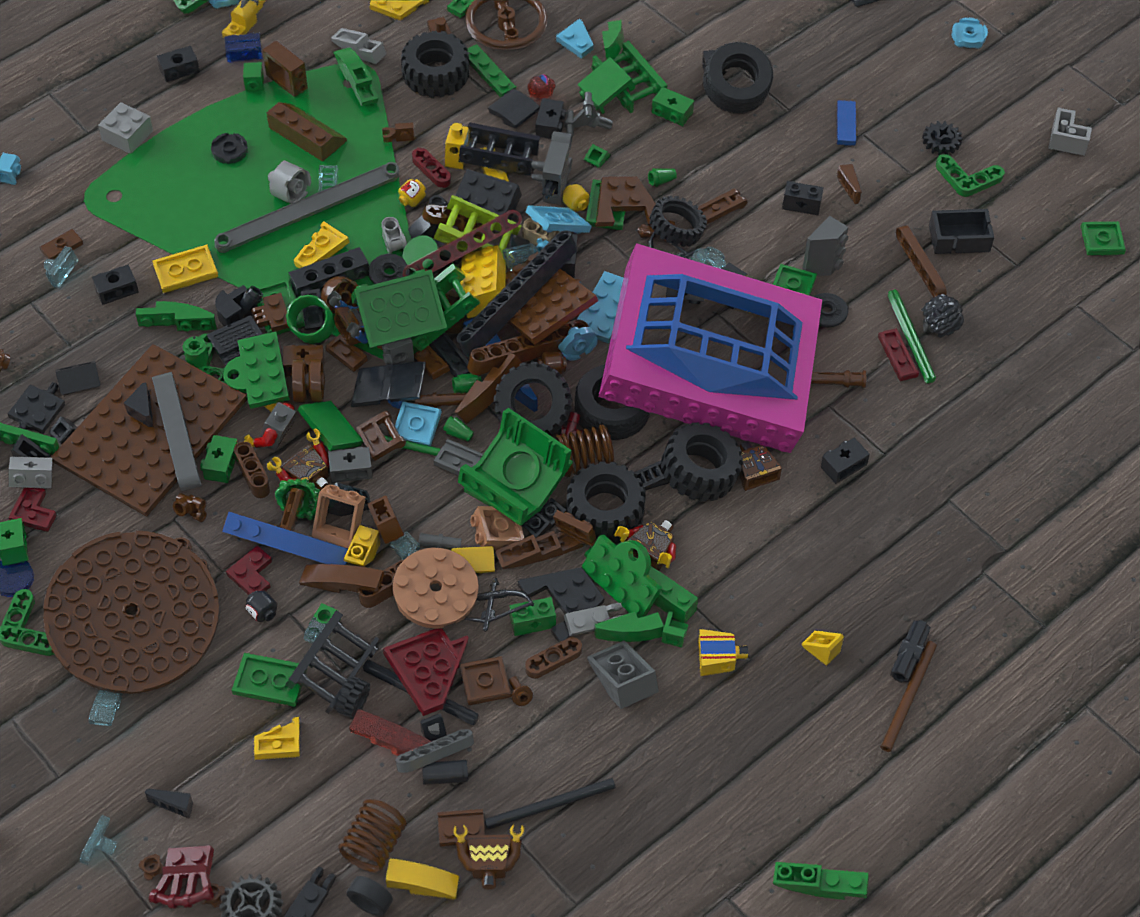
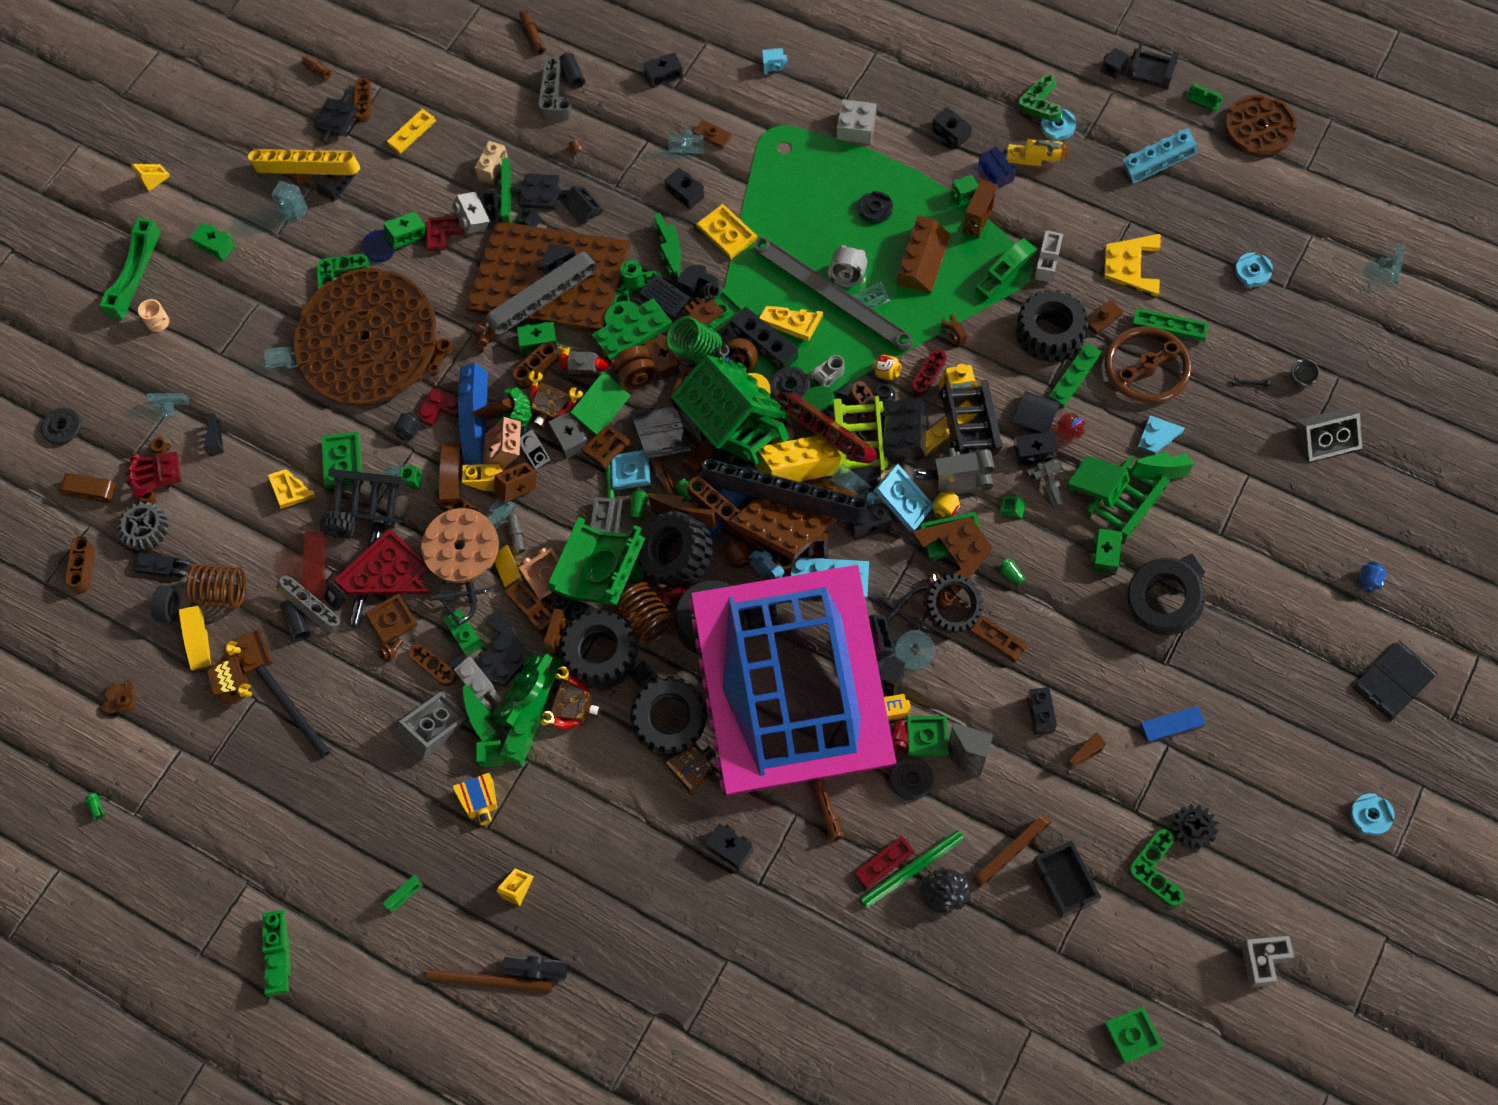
camera: 75 degrees right, 10 degrees up
(796, 746) = (402, 894): none -> green tile

